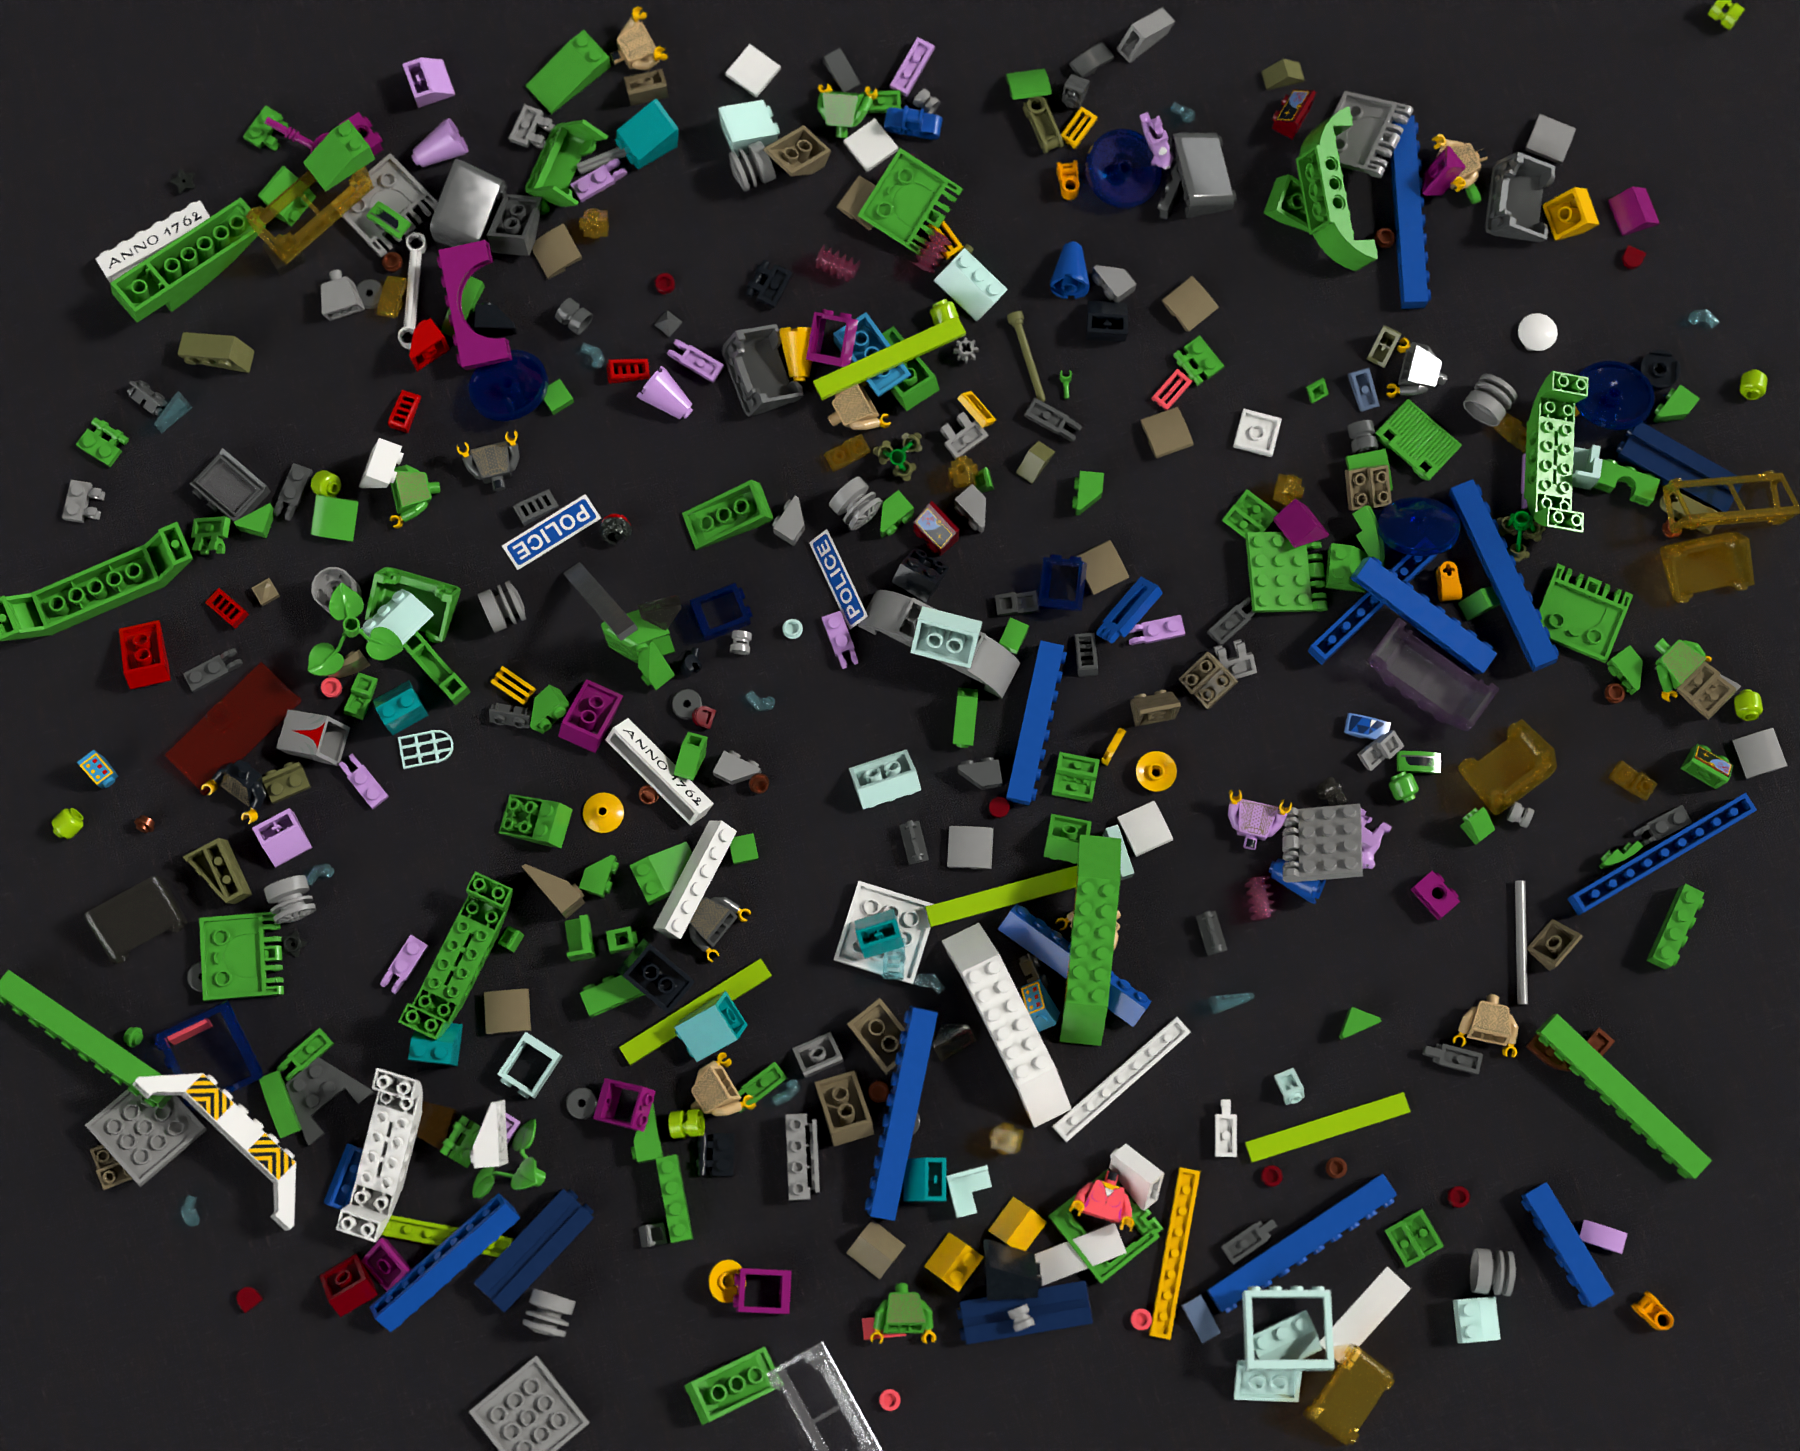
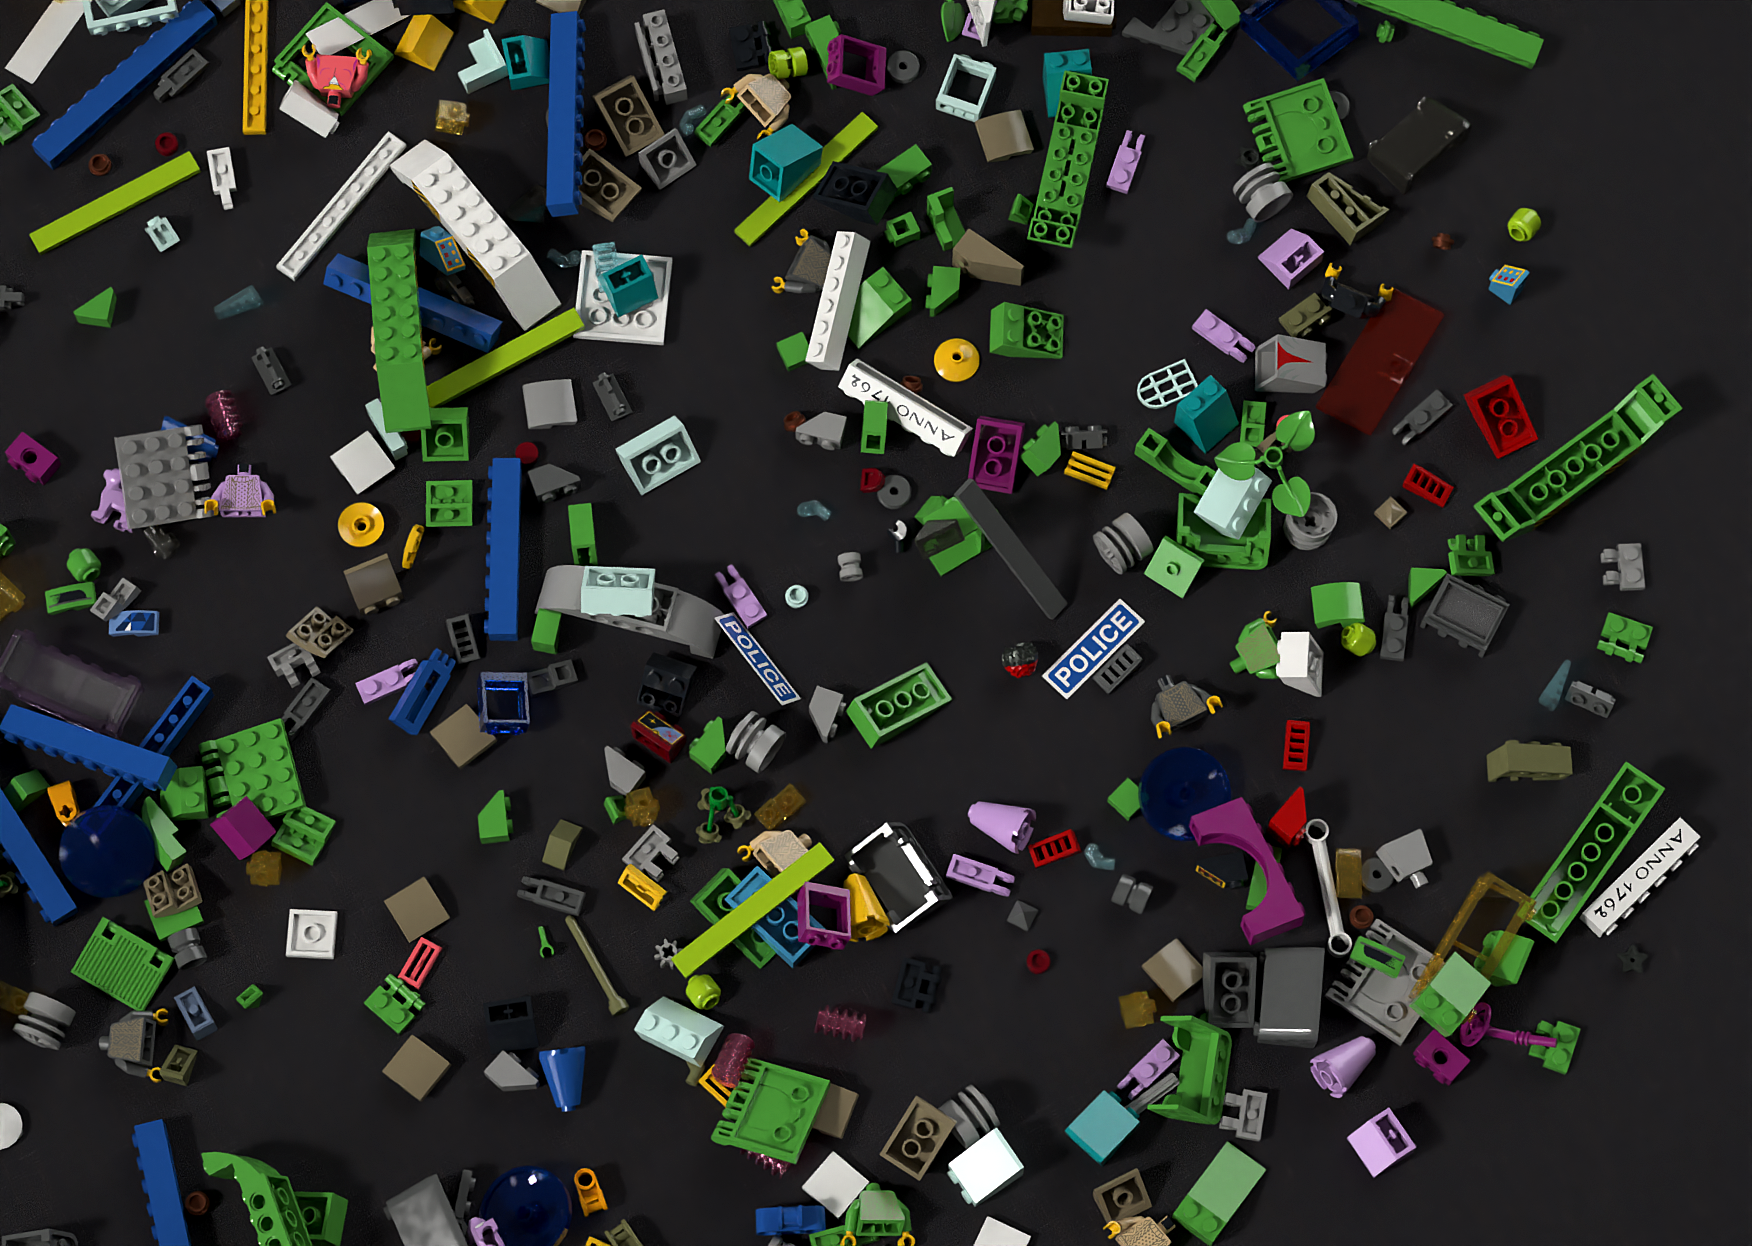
camera: 170 degrees right, 5 degrees down
(463, 578) = (1174, 567): none -> bright green plate
(725, 628) = (900, 583): clear blue window -> none

